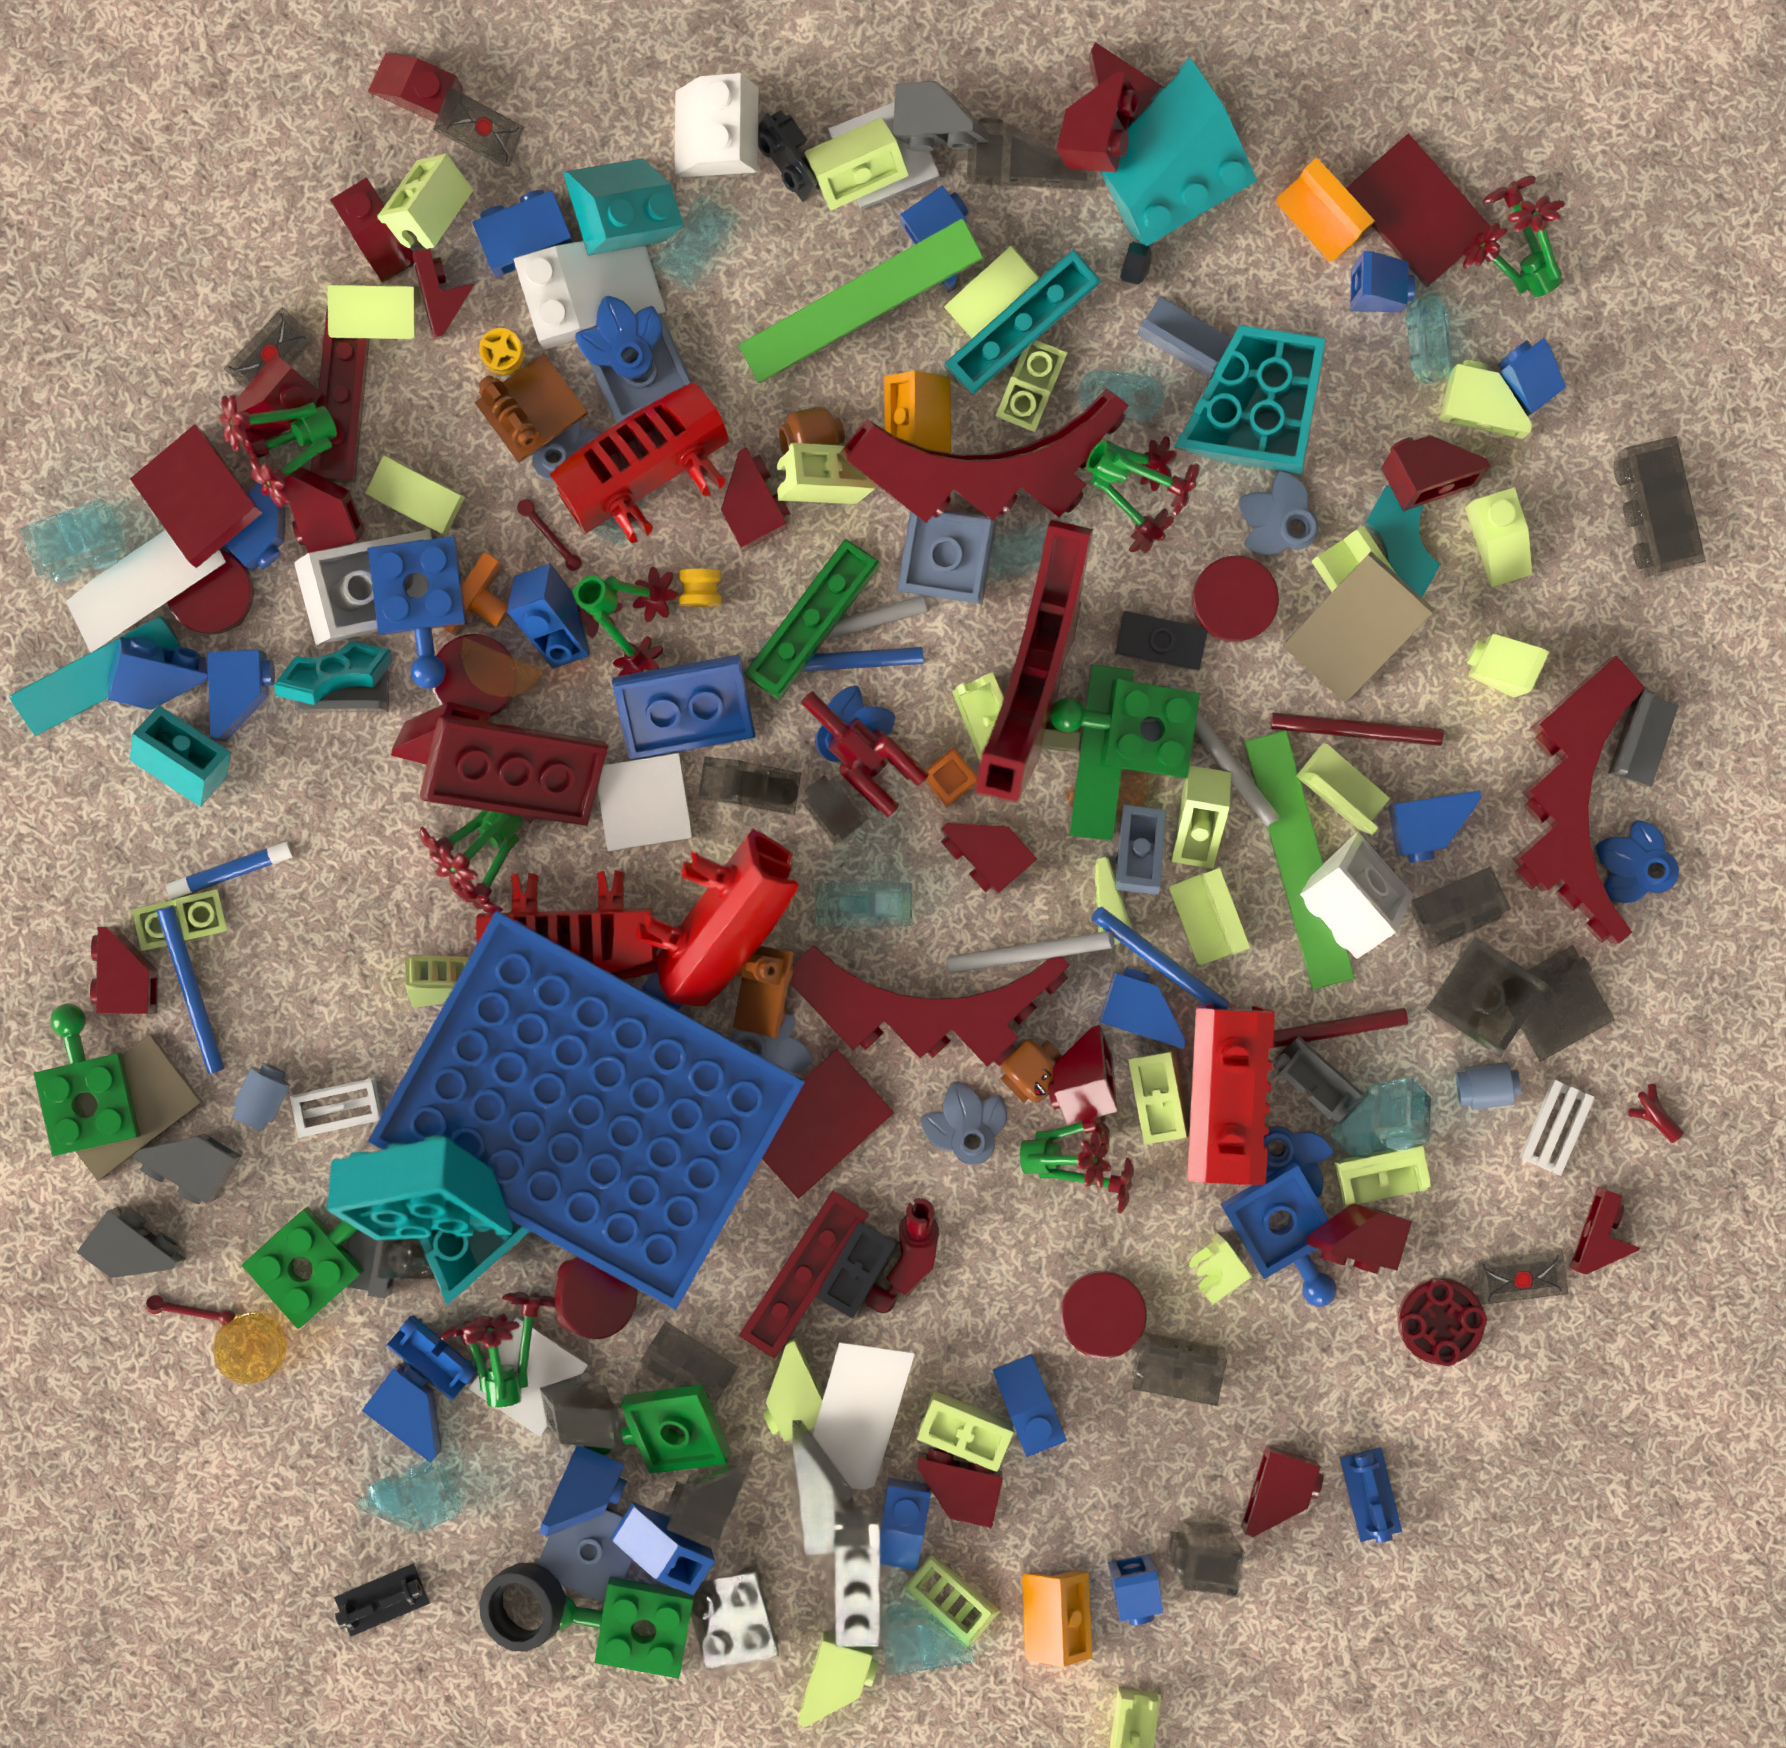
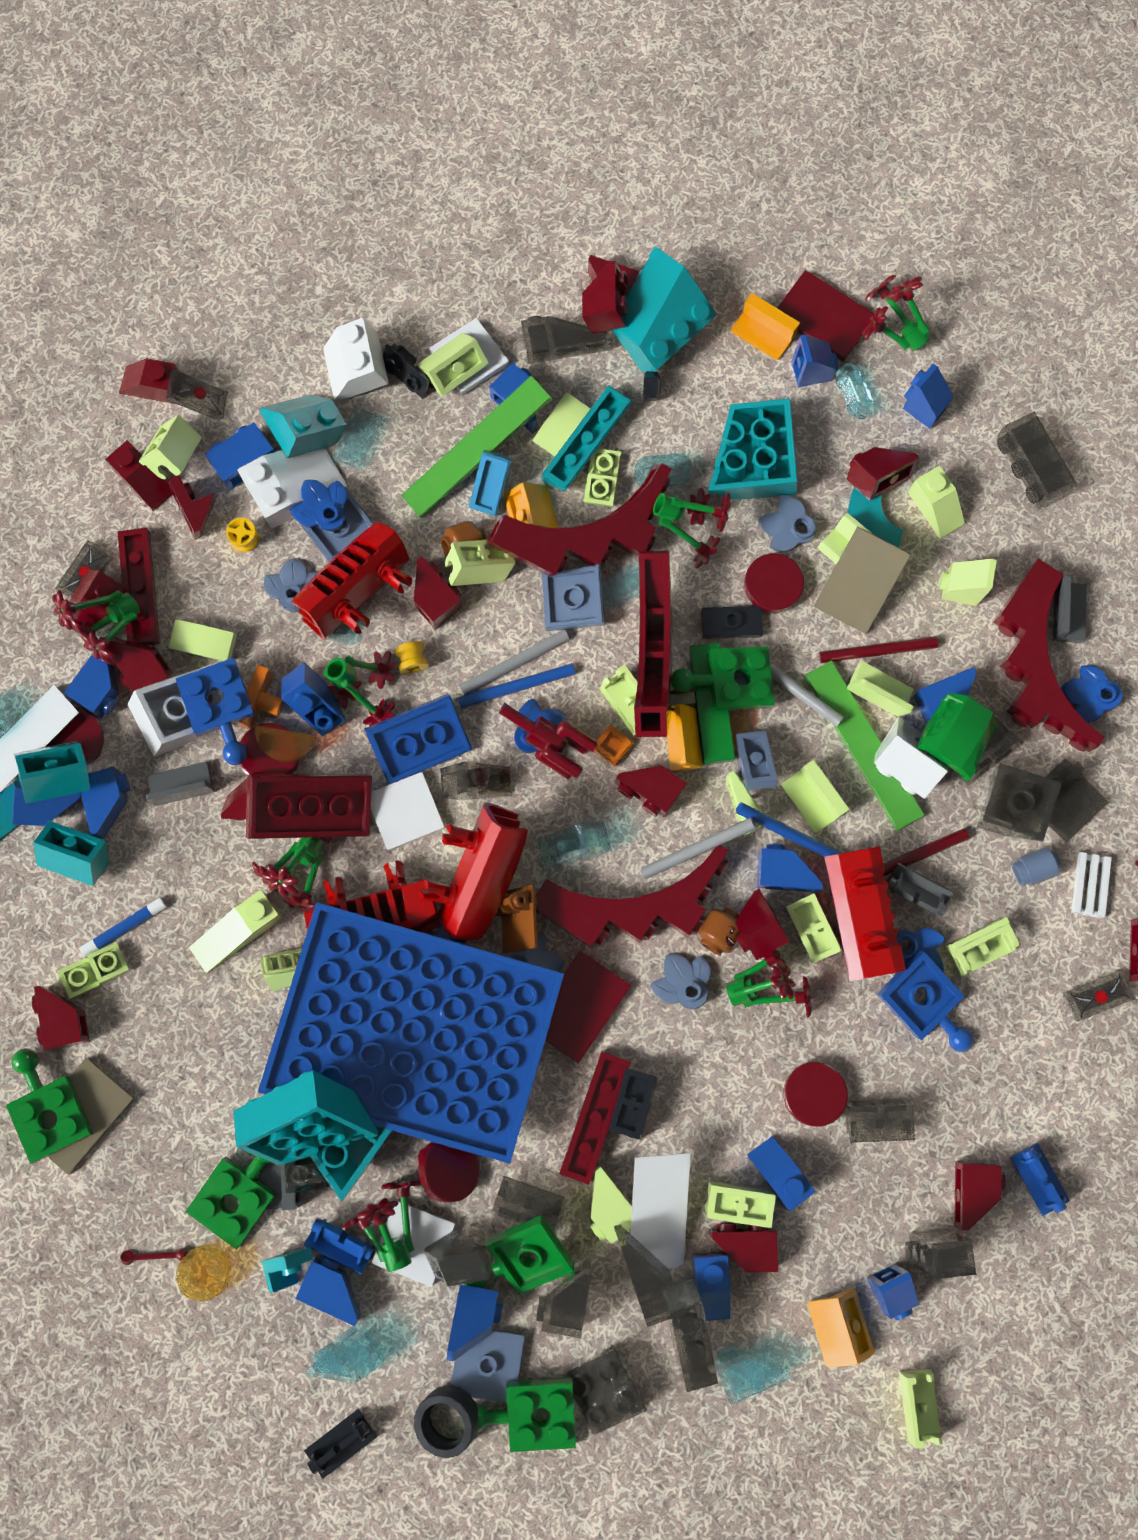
camera: 20 degrees left, 10 degrees down
(126, 1248) = (96, 1218): dark grey slope -> none
(176, 640) = (52, 771): none -> teal slope
(190, 989) = (110, 1017): blue bar -> none
(194, 1164) = (136, 1144): dark grey slope -> none
(195, 496) = (50, 674): dark red tile -> none
(260, 1096) = (175, 1083): sand blue brick -> none
(300, 1115) = (207, 1090): white tile -> none
(316, 677) = (155, 777): teal tile -> none
(353, 1368) = (283, 1268): none -> teal bracket
(372, 311) = (148, 526): yellowish green panel -> none
(381, 912) = (236, 930): none -> yellowish green slope
(526, 509) = (281, 634): dark red hinge -> none
(529, 407) = (268, 565): dark orange hinge -> none
(662, 1552) = (540, 1350): blue slope -> none
(812, 619) = (492, 661): green tile -> none
(834, 808) = (538, 781): clear smoke slope -> none
(836, 1679) = (692, 1418): yellowish green slope -> none
(868, 359) = (490, 483): none -> dark azure tile
(918, 1252) = (672, 1077): dark red arm -> none
(932, 116) = (497, 320): dark grey slope -> none
(975, 1599) = (791, 1337): yellowish green slope -> none
(1050, 795) = (684, 739): none -> light orange panel
(1184, 337) = (694, 426): sand blue panel -> none
(1202, 817) = (791, 730): yellowish green slope -> none
(1222, 1269) = (892, 1036): yellowish green hinge -> none
(1362, 1234) = (984, 991): dark red slope -> none
(1385, 1119) = (974, 905): clear light blue slope -> none
(1426, 883) = (959, 733): none -> green slope
(1441, 1321) = (1052, 1040): dark red tile -> none
(1483, 401) = (902, 421): yellowish green slope -> none

